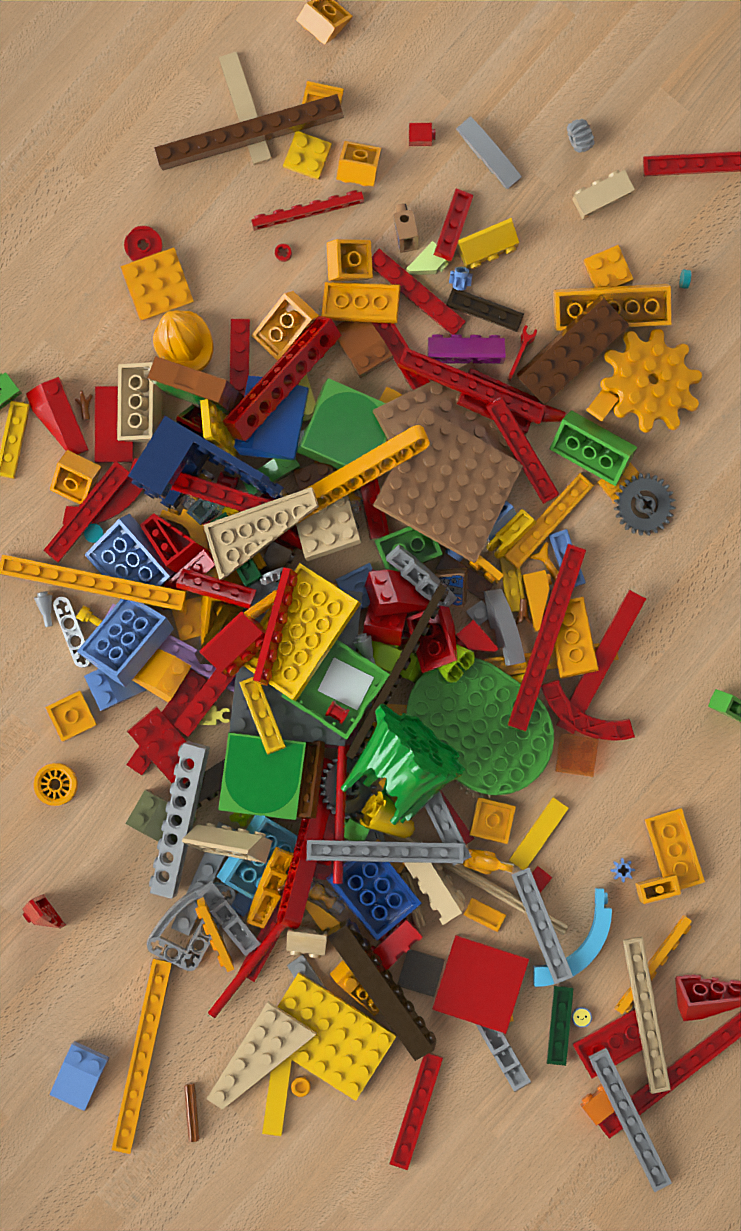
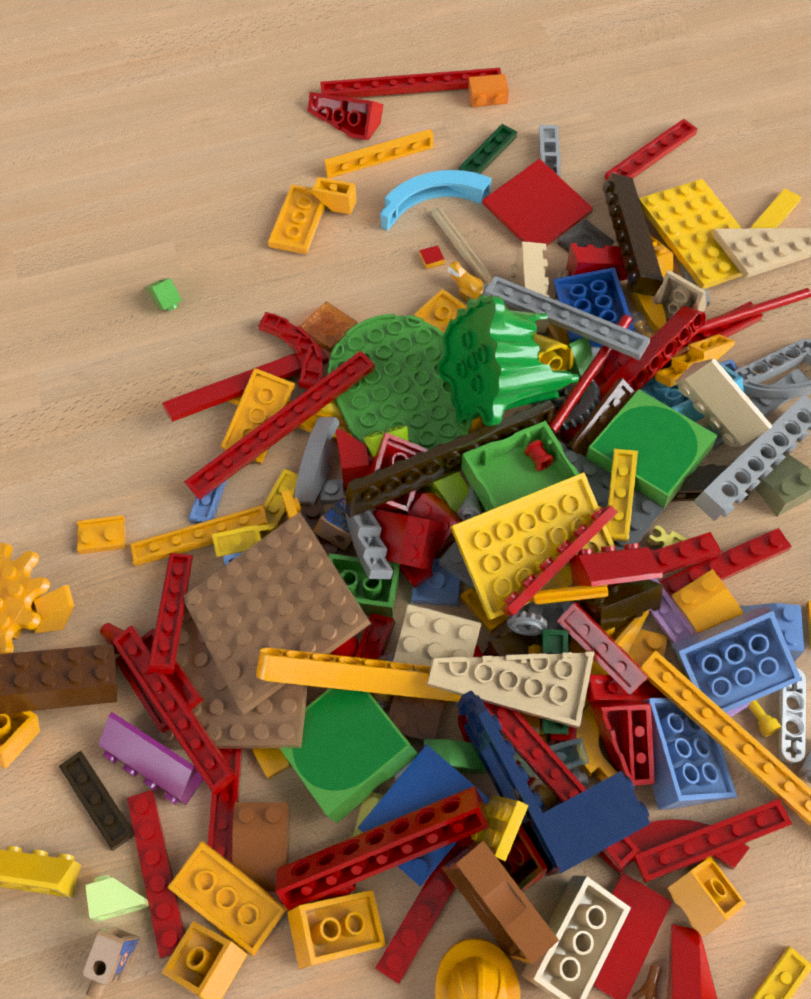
camera: 150 degrees left, 25 degrees down
(93, 533) = (713, 812): teal tile -> none
(160, 742) = (743, 542): red plate -> none
(217, 941) = (773, 348): light orange plate -> none
(228, 918) = (751, 355): light grey slope -> none
(300, 1086) = (746, 215): light orange tile -> none
(345, 684) = (511, 478): white sticker -> none
(453, 224) = (50, 924): red plate -> none
(460, 278) = (93, 851): medium blue gear -> none
(484, 914) = (498, 254): light orange tile -> none
(523, 612) = (287, 466): dark orange bar -> none
(526, 340) = (94, 716): red flag -> none
(536, 591) = (263, 472): light orange slope -> none
(538, 834) = (407, 288): yellow tile -> none
(542, 926) = (454, 213): light grey plate -> none
(544, 557) = (230, 506): light orange piece -> none
(581, 1017) = (464, 150): light yellow tile -> none
(593, 447) = (100, 574): bright green slope -> none
(619, 1037) = (451, 121): red plate -> none
(626, 873) = (354, 225): medium blue gear -> none
(630, 1120) = (474, 65): light grey plate -> none
(646, 1014) = (409, 120): tan tile -> none
(655, 518) = (93, 488): dark grey gear -> none

